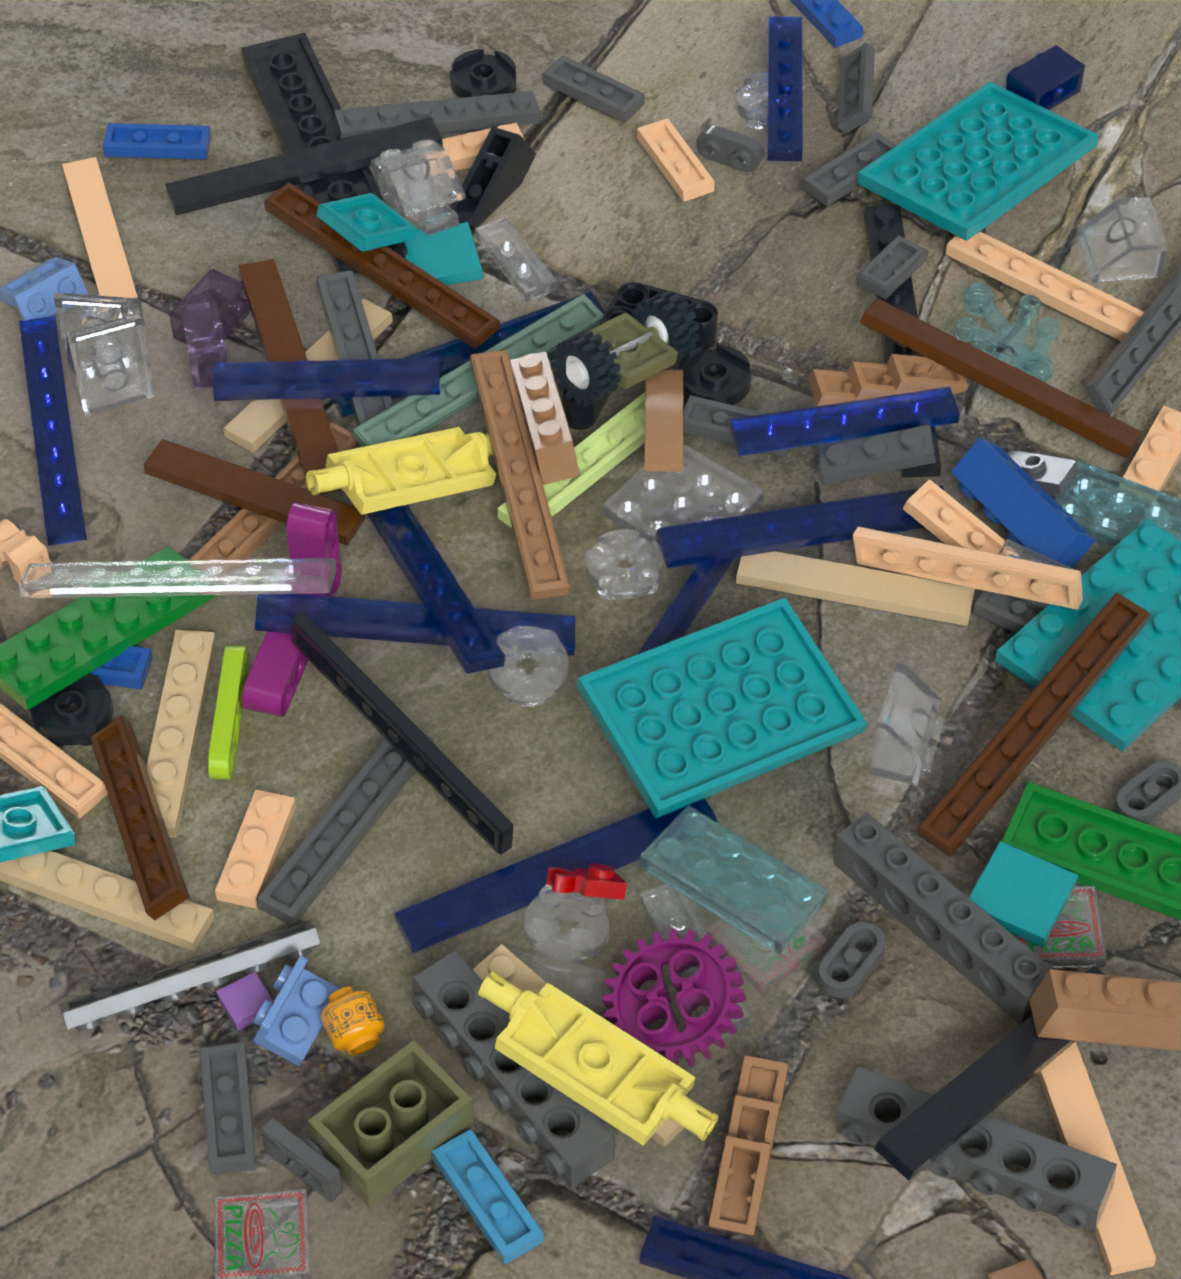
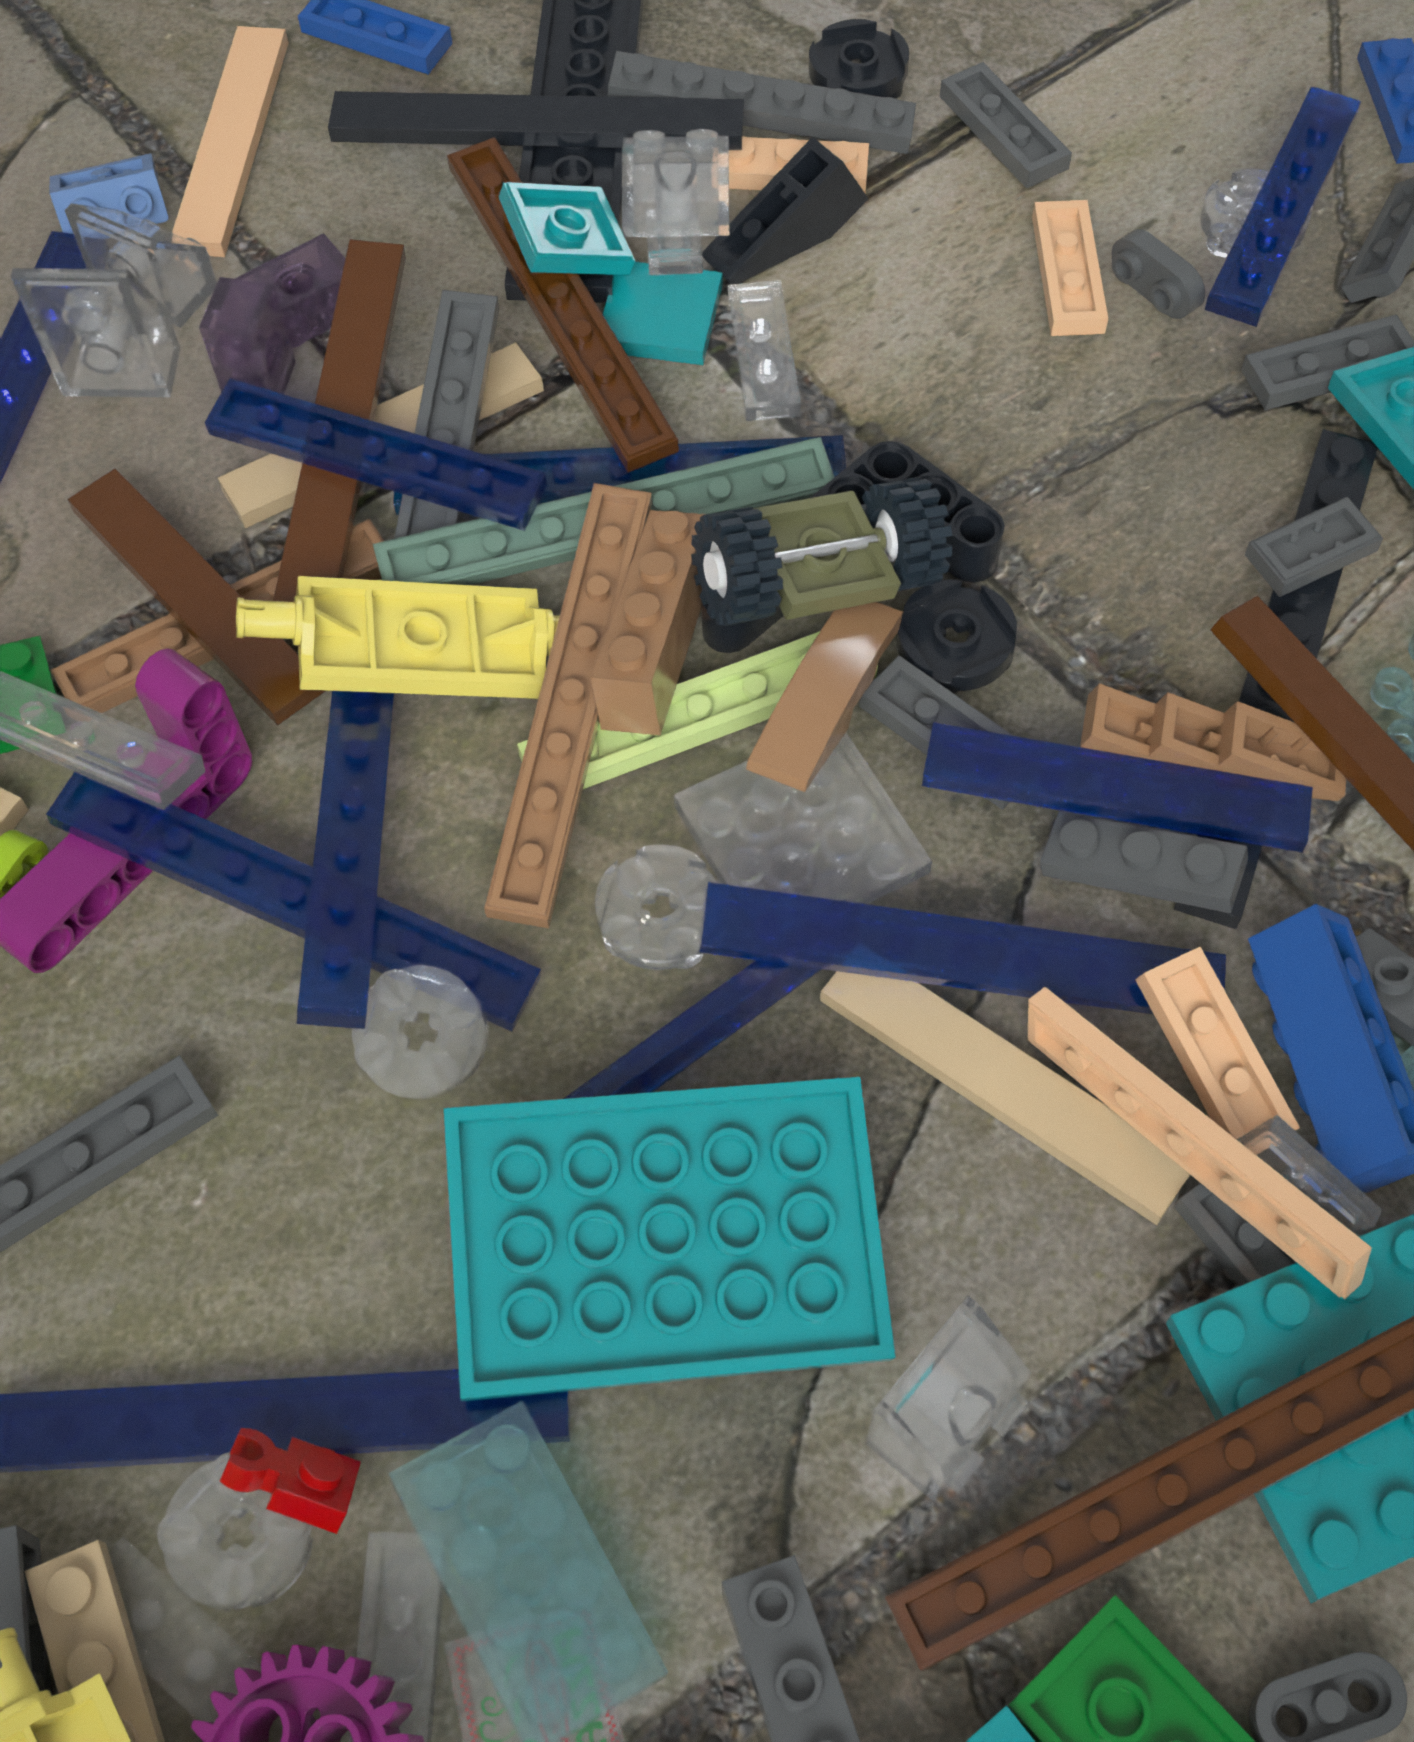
camera: 25 degrees right, 10 degrees up
(402, 734) = (153, 1098): black tile -> none

